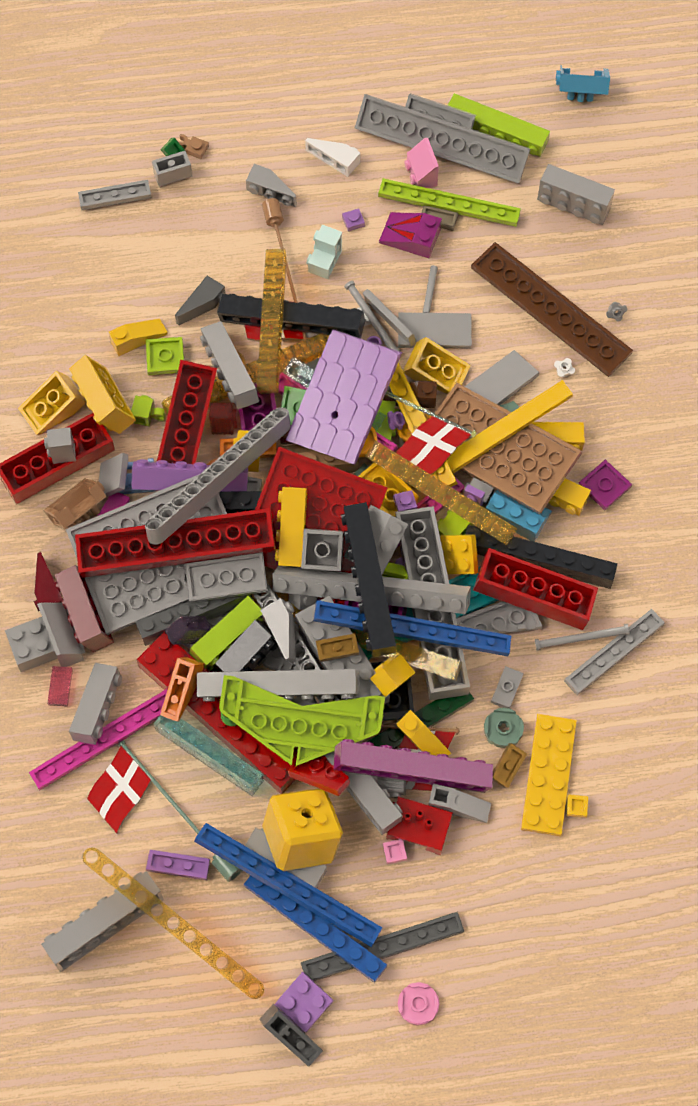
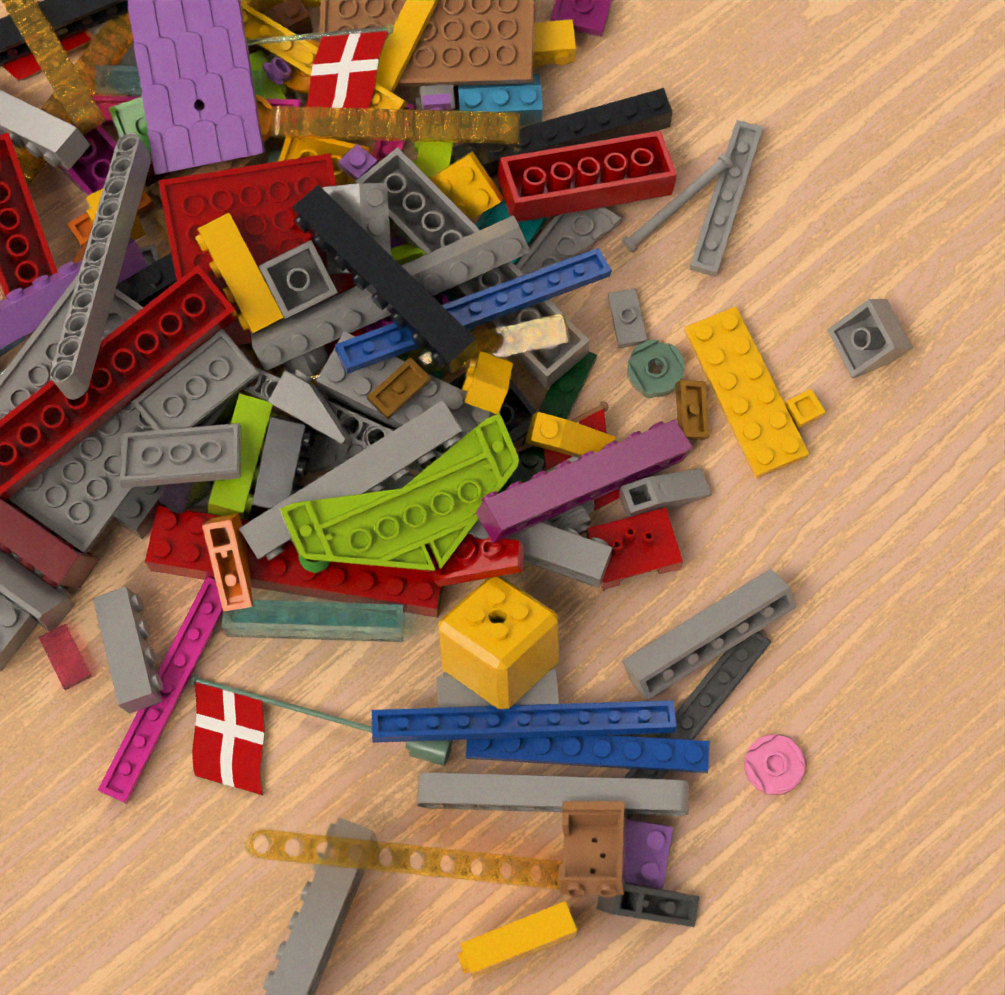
camera: 30 degrees left, 5 degrees up
(178, 865) = (367, 784): medium lavender plate -> none
(192, 611) = (180, 455): none -> light grey tile
(201, 1006) = (517, 940): none -> yellow brick
(223, 418) = (54, 195): clear red brick -> none
(277, 981) = (593, 848): none -> medium nougat piece
(278, 937) = (548, 792): none -> light grey beam
(394, 851) = (624, 599): bright pink plate -> none
(430, 902) = (709, 634): none -> light grey brick
(645, 787) = (869, 337): none -> light grey slope

